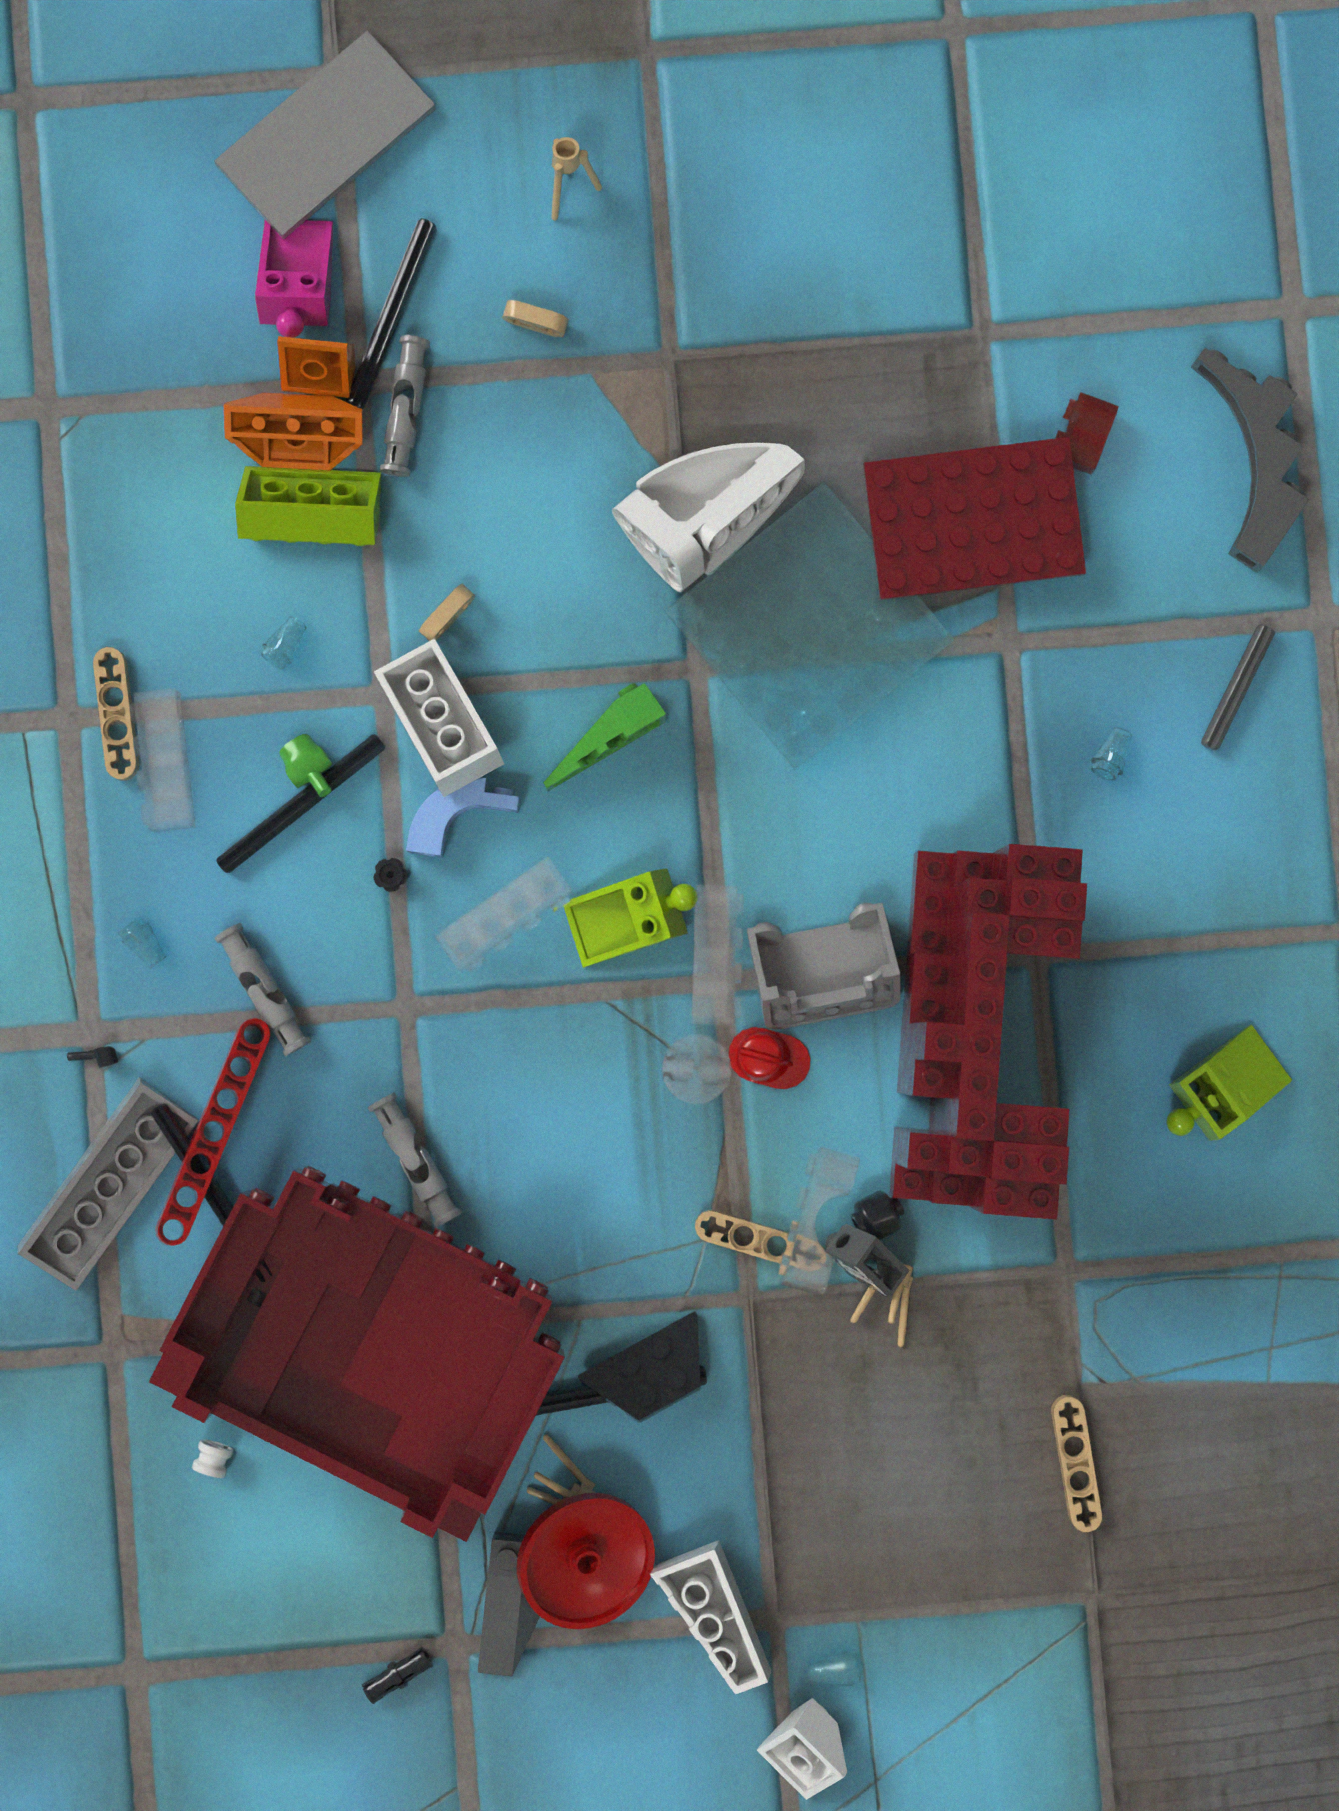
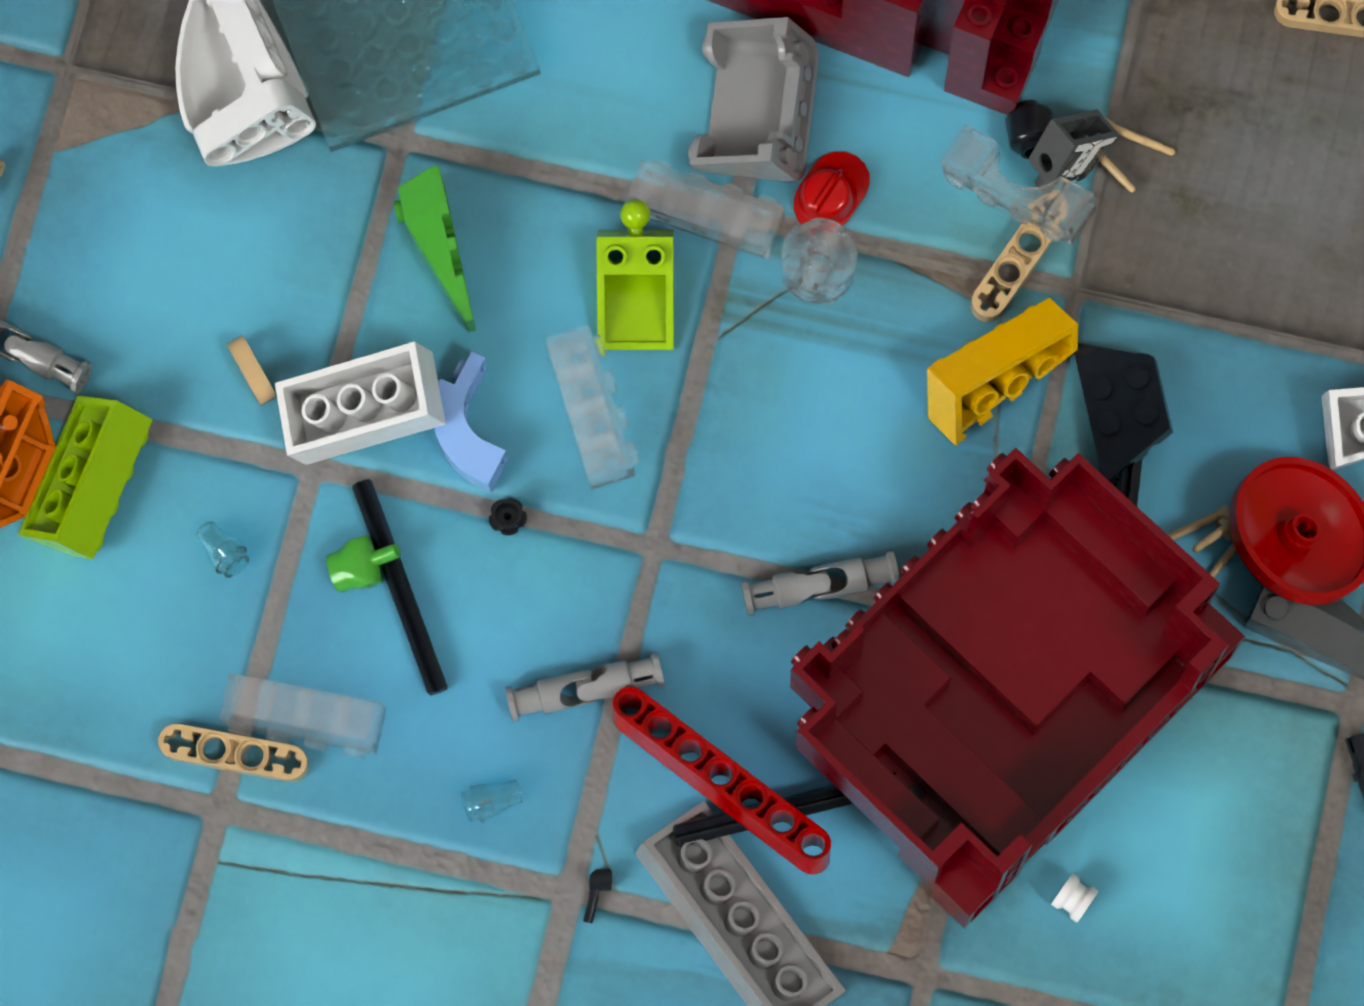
camera: 60 degrees left, 10 degrees down
(651, 1254) = (997, 367): none -> yellow wedge

